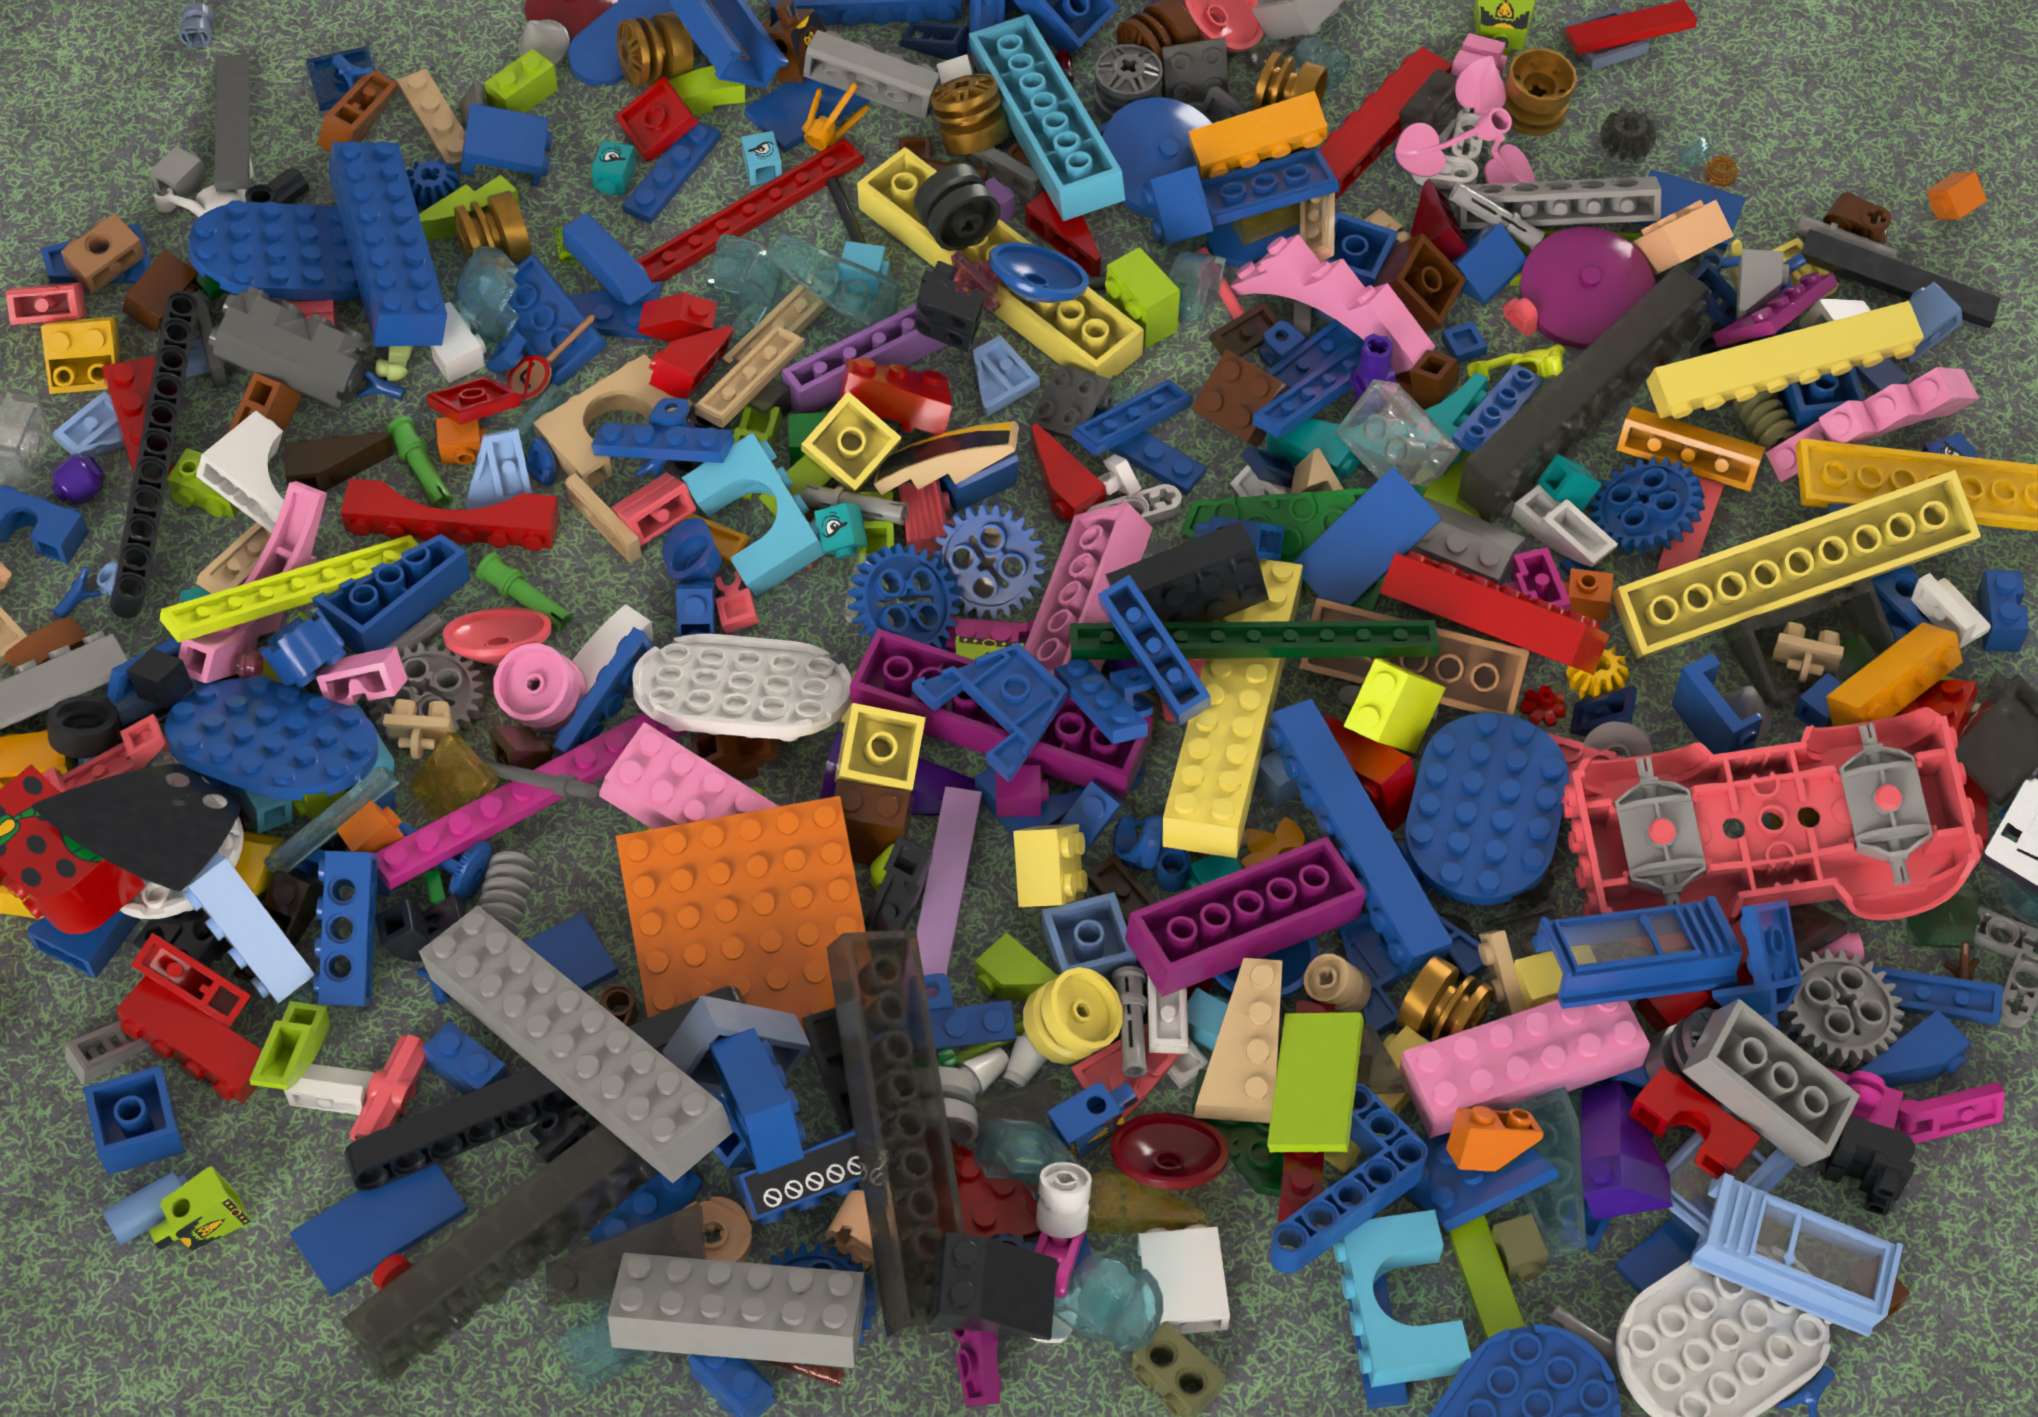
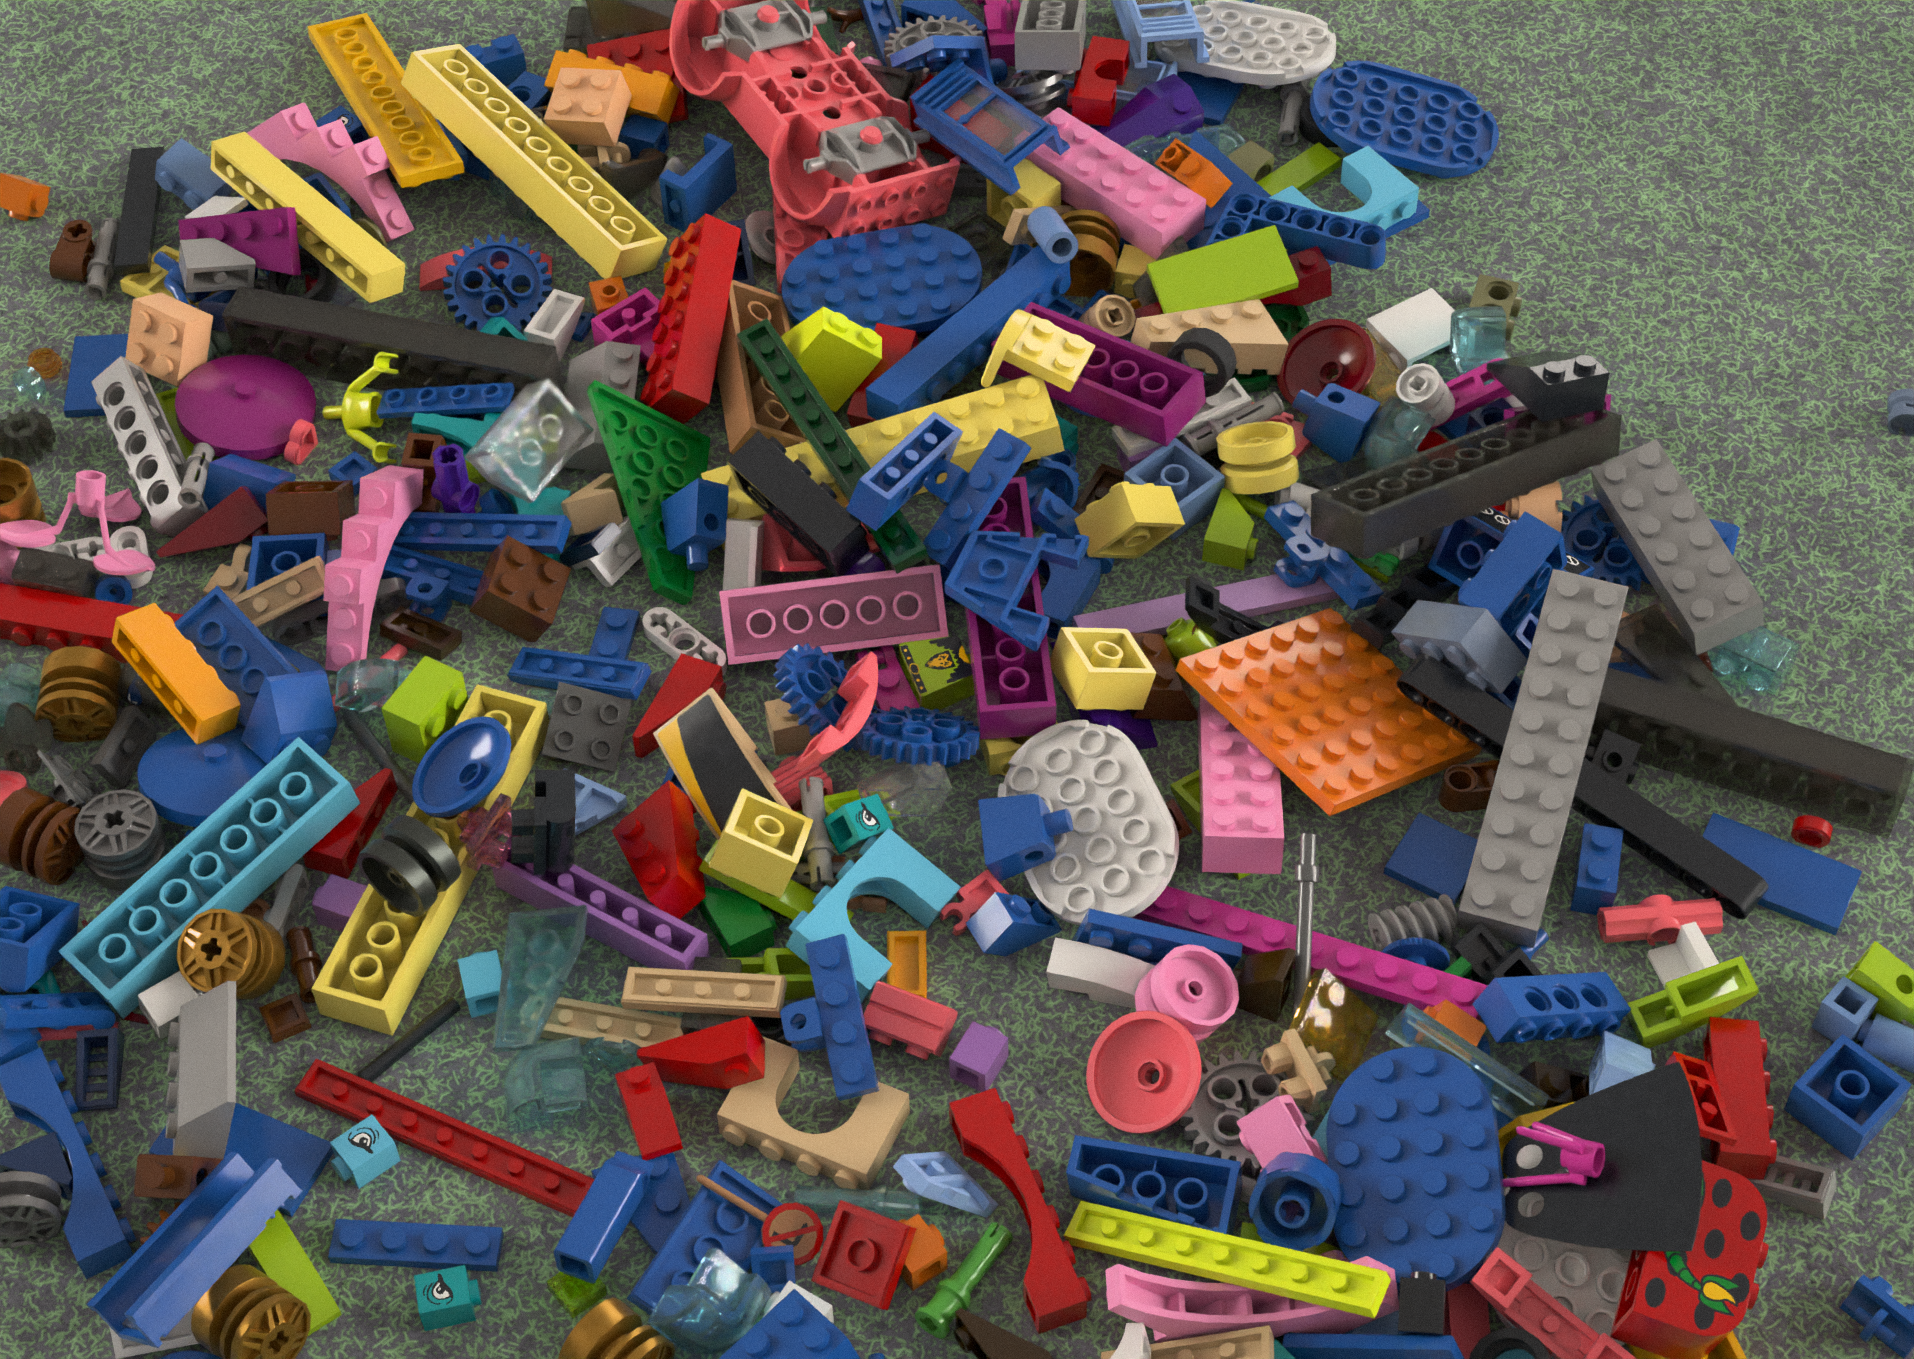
camera: 115 degrees left, 5 degrees down
(171, 796) = (1579, 1156): none -> dark pink plant
(199, 1156) = (1844, 1010): none -> medium blue brick
(513, 584) = (1067, 1108): bright green pin -> none
(541, 461) = (891, 1155): blue tile -> none
(592, 543) = (979, 1056): none -> medium lavender brick
(603, 518) = (938, 1069): tan tile -> none
(656, 119) = (350, 1288): red tile -> none
(691, 552) = (945, 957): blue piece -> none
(762, 630) = (1019, 833): none -> blue torso
(821, 131) = (299, 1109): light orange plant -> none
(908, 508) = (860, 691): none -> coral slope
(1023, 794) = (1069, 582): magenta brick -> none
(1119, 476) = (656, 653): white tile -> none
(1196, 994) = (1215, 347): none -> black tyre
(1265, 838) = (1040, 350): none -> light yellow piece
(1365, 538) = (655, 426): blue tile -> none
(1448, 947) = (1052, 234): none -> medium blue brick
(1703, 450) = (421, 250): light orange brick -> none
(1850, 630) = (588, 106): none -> light nougat brick
(1949, 609) = (527, 71): white panel -> none

